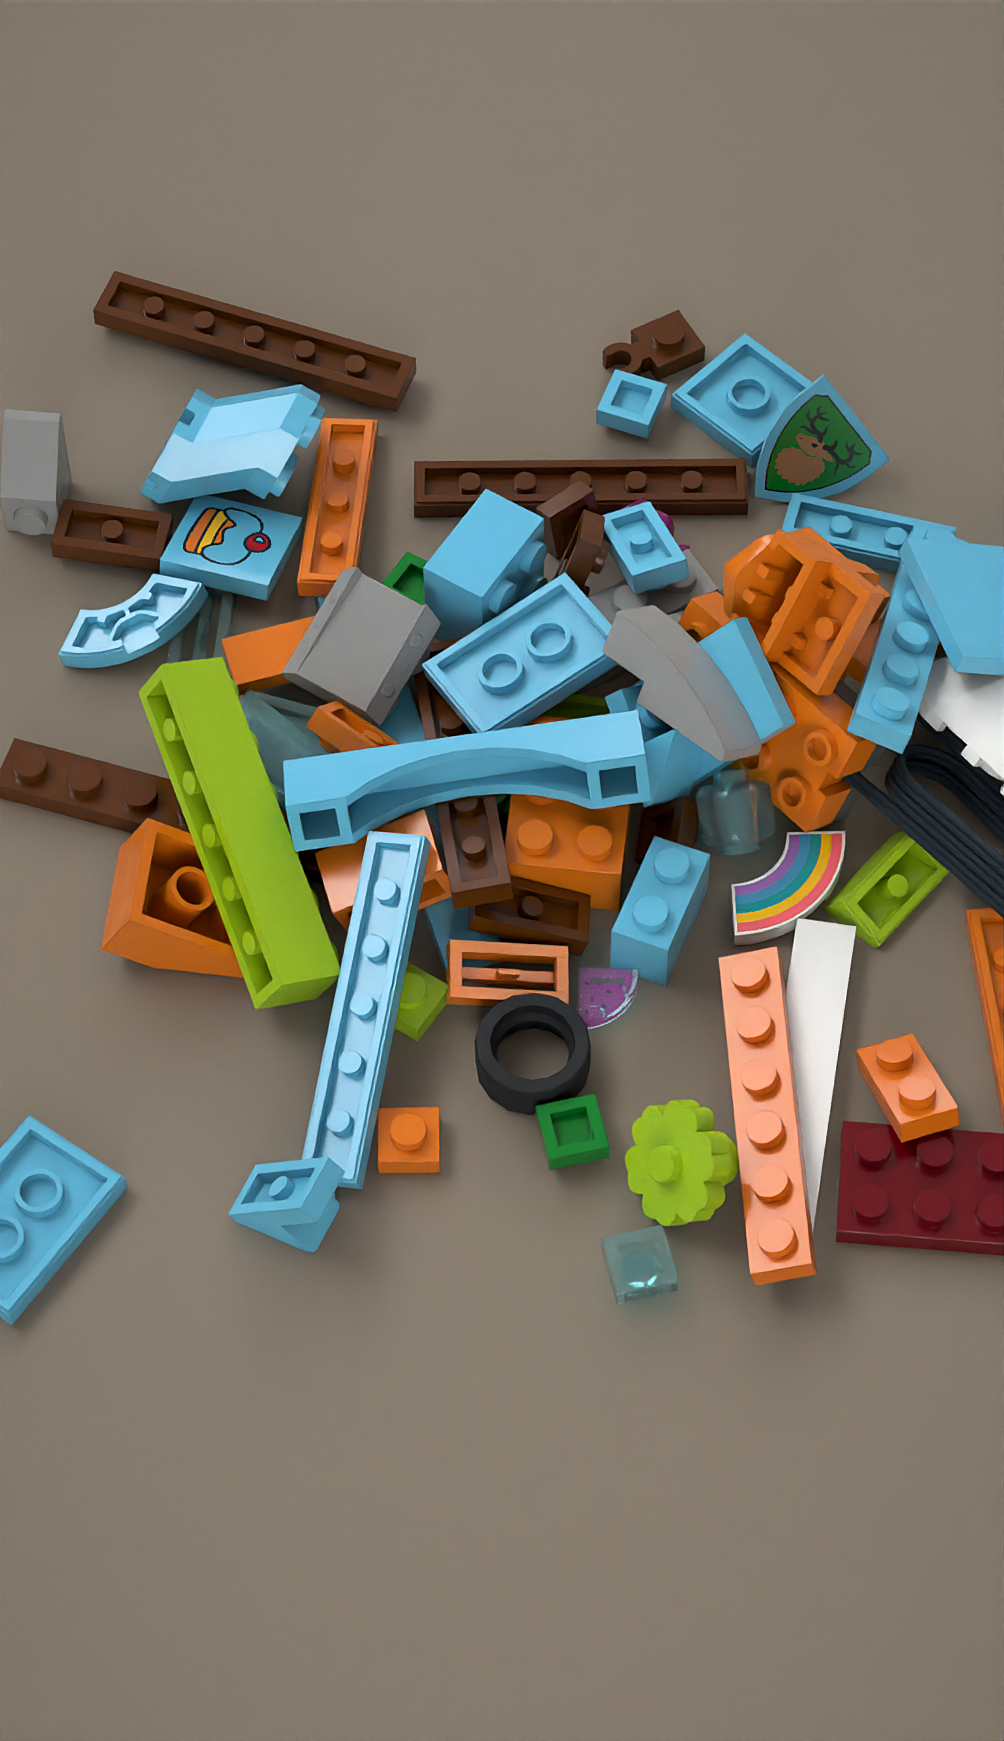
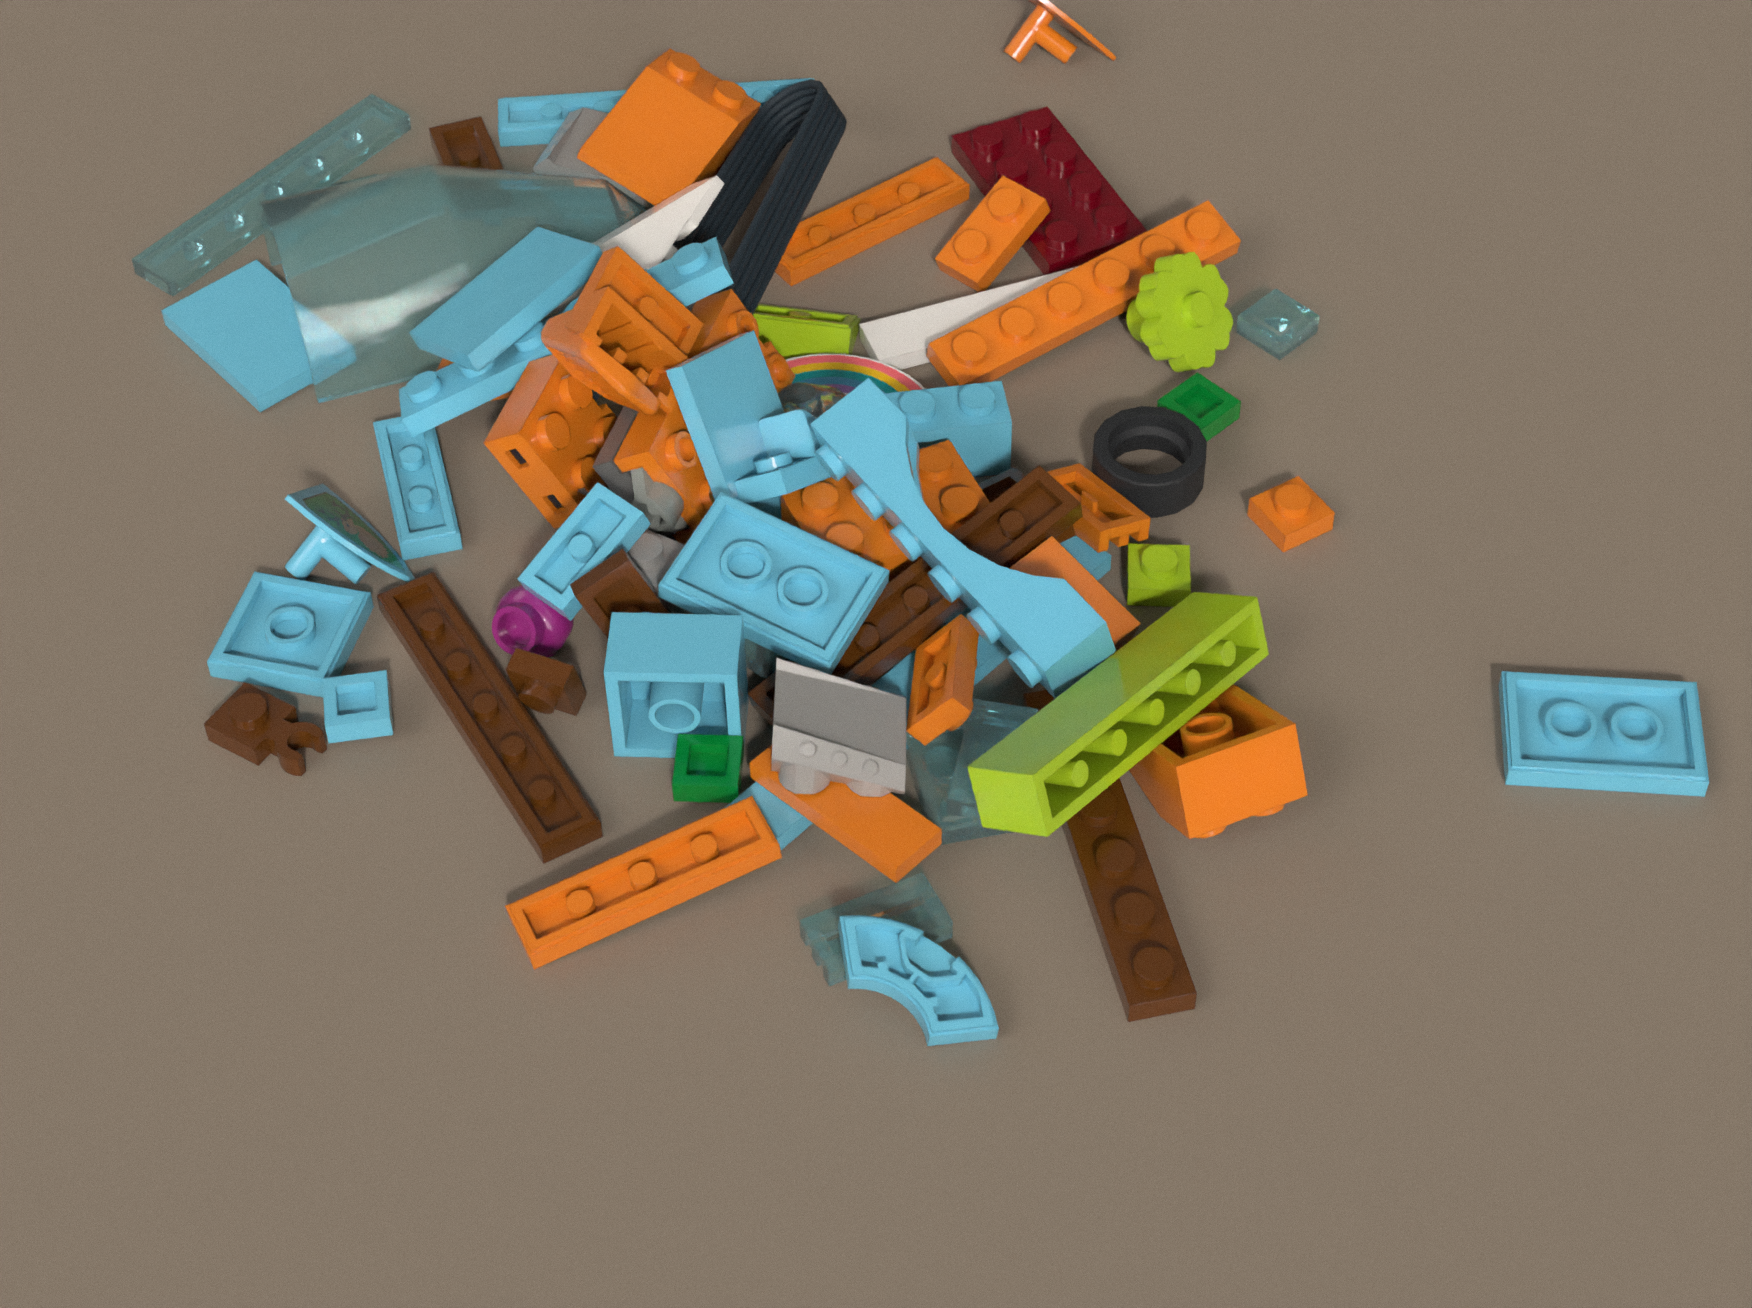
camera: 120 degrees left, 10 degrees down
(33, 471) = (800, 1151): light grey slope -> none
(111, 535) = (814, 1061): reddish brown plate -> none
(231, 546) = (759, 943): medium azure tile -> none
(235, 444) = (645, 975): medium azure brick -> none
(255, 341) = (457, 1083): reddish brown plate -> none
(290, 1200) = (1425, 539): medium azure slope -> none
(367, 1002) = (1216, 555): medium azure tile -> none
(605, 994) = (1048, 453): clear light blue tile -> none
(681, 683) = (749, 423): light grey slope -> none

